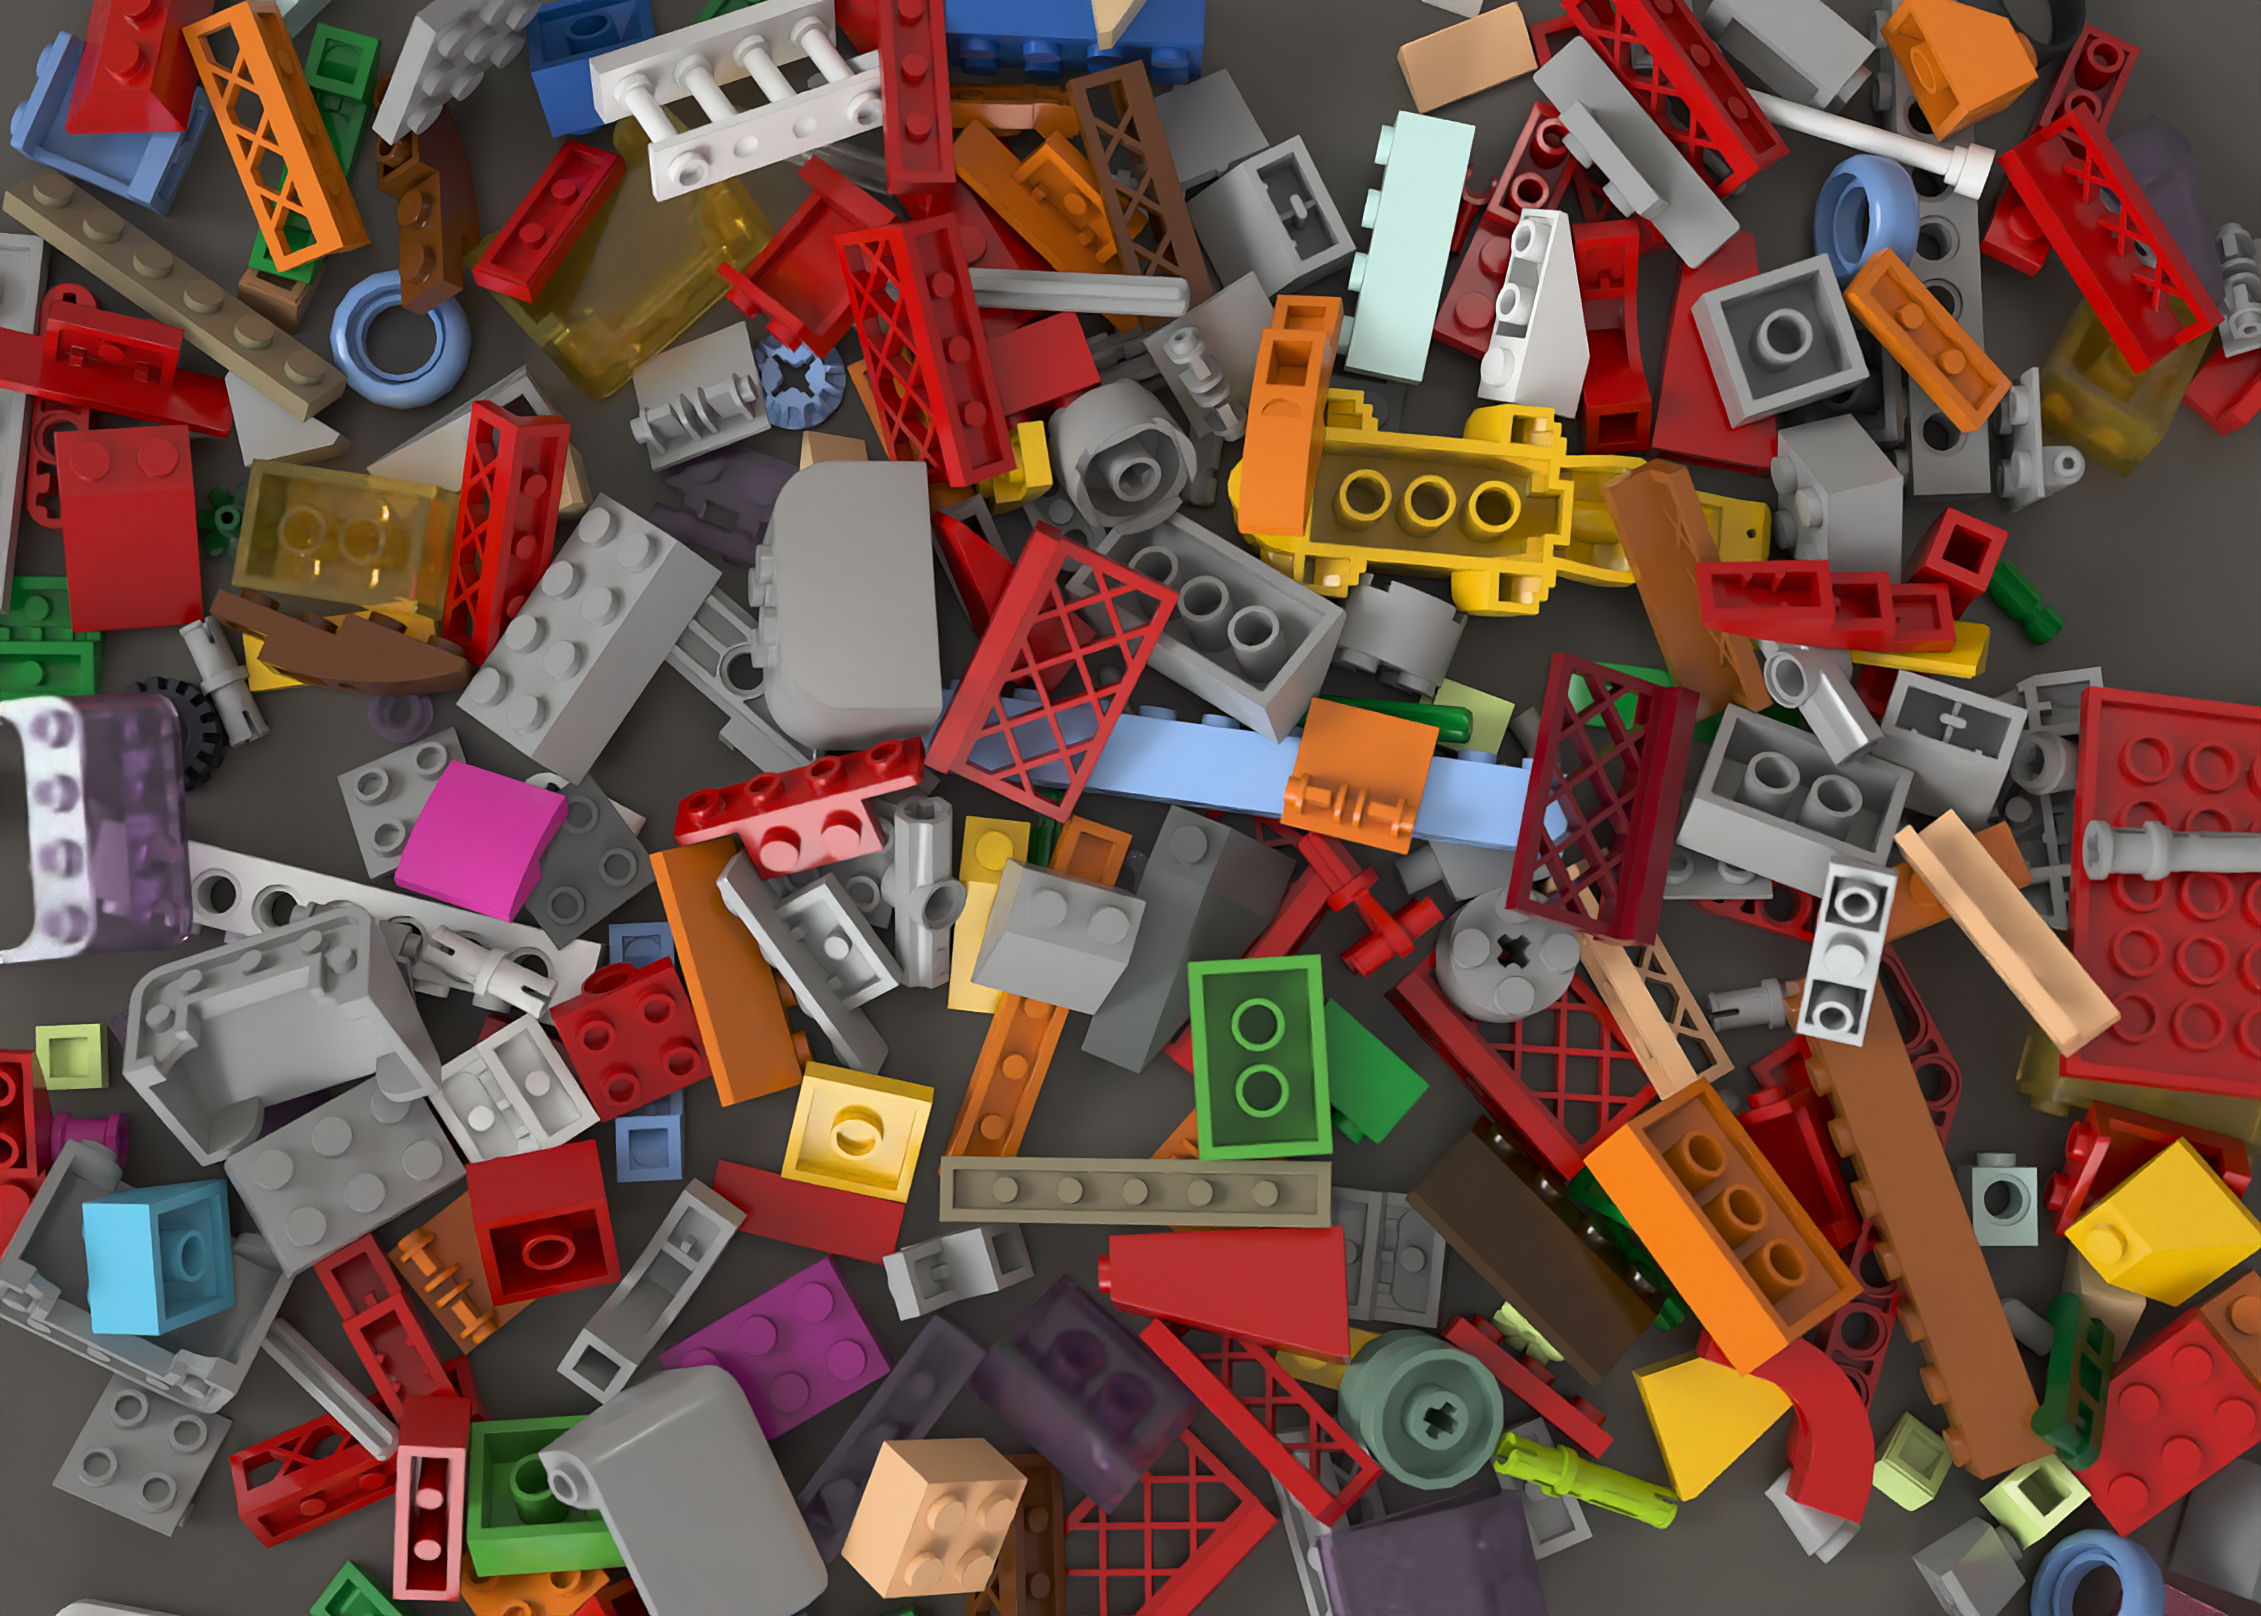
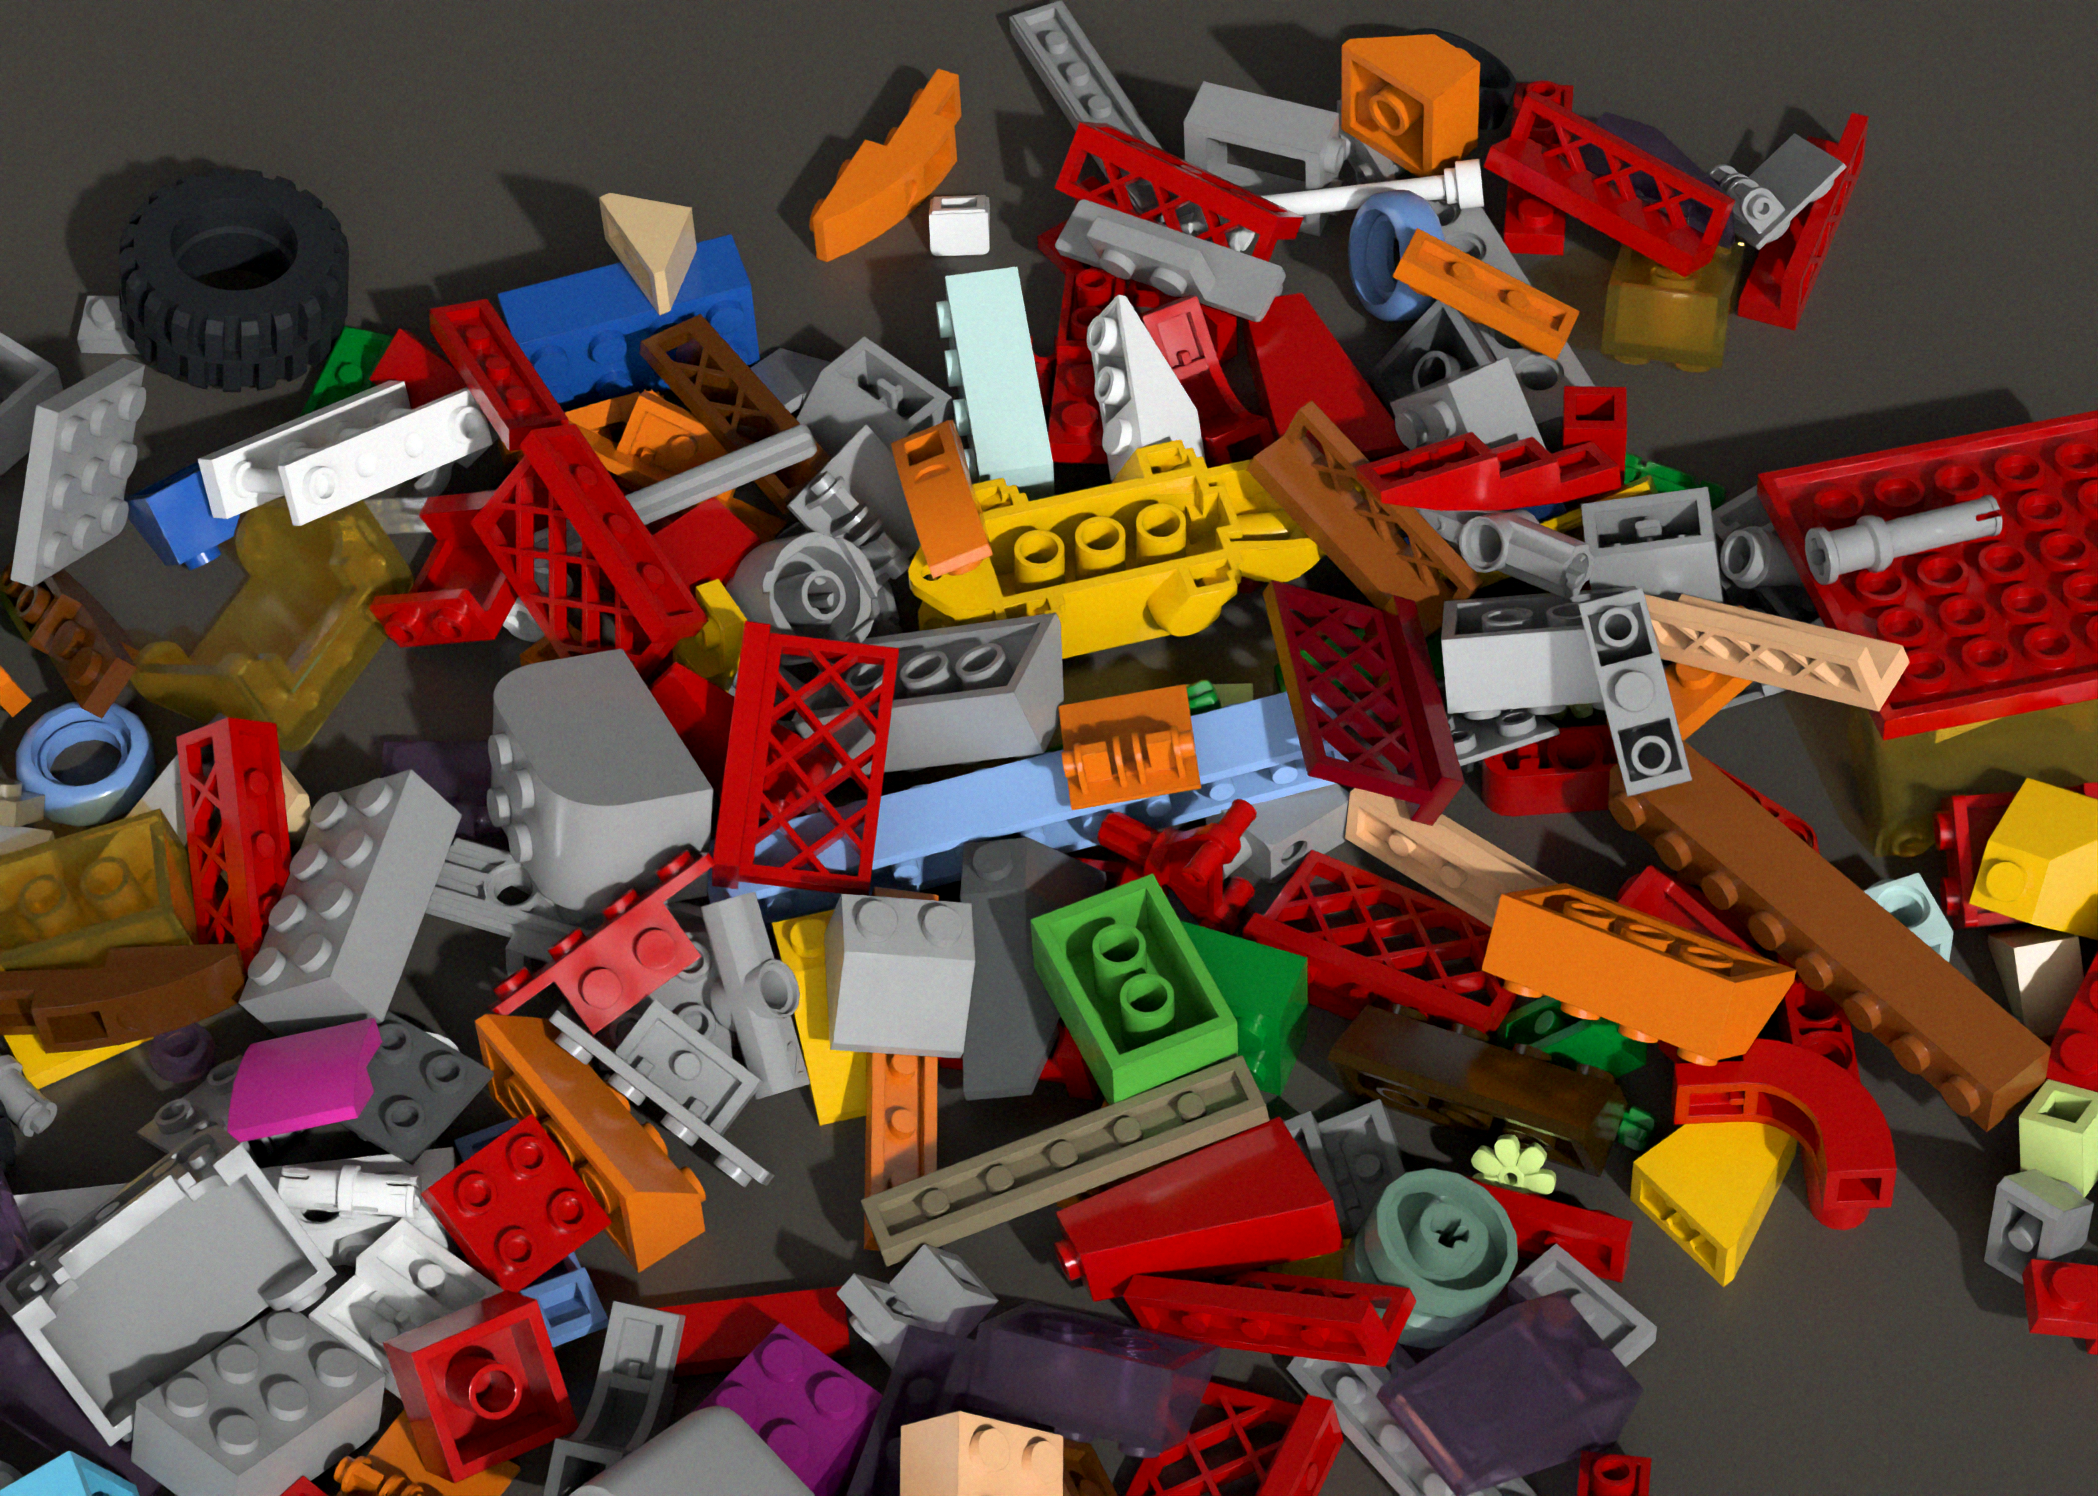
camera: 15 degrees left, 35 degrees down
(549, 221) = (199, 615): red tile -> none
(699, 397) = (391, 709): light grey hinge -> none
(793, 408) = (467, 704): light blue gear -> none
(857, 1132) = (769, 1224): yellow plate -> none
(1399, 634) = (1117, 649): light grey brick -> none
(1467, 58) = (1004, 245): light nougat slope -> none
(1476, 981) = (1336, 868): light grey brick -> none
(1564, 1473) = (1598, 1267): lime pin -> none
(1749, 1007) = (1607, 854): light grey pin -> none
(1779, 340) = (1357, 332): light grey brick -> none
(1814, 1529) = (1865, 1242): light grey cone -> none
(1911, 1463) = (1937, 1180): yellowish green slope -> none
(2027, 467) = (1625, 358): light grey hinge -> none
(2075, 1383) = (2040, 999): dark green plate -> none

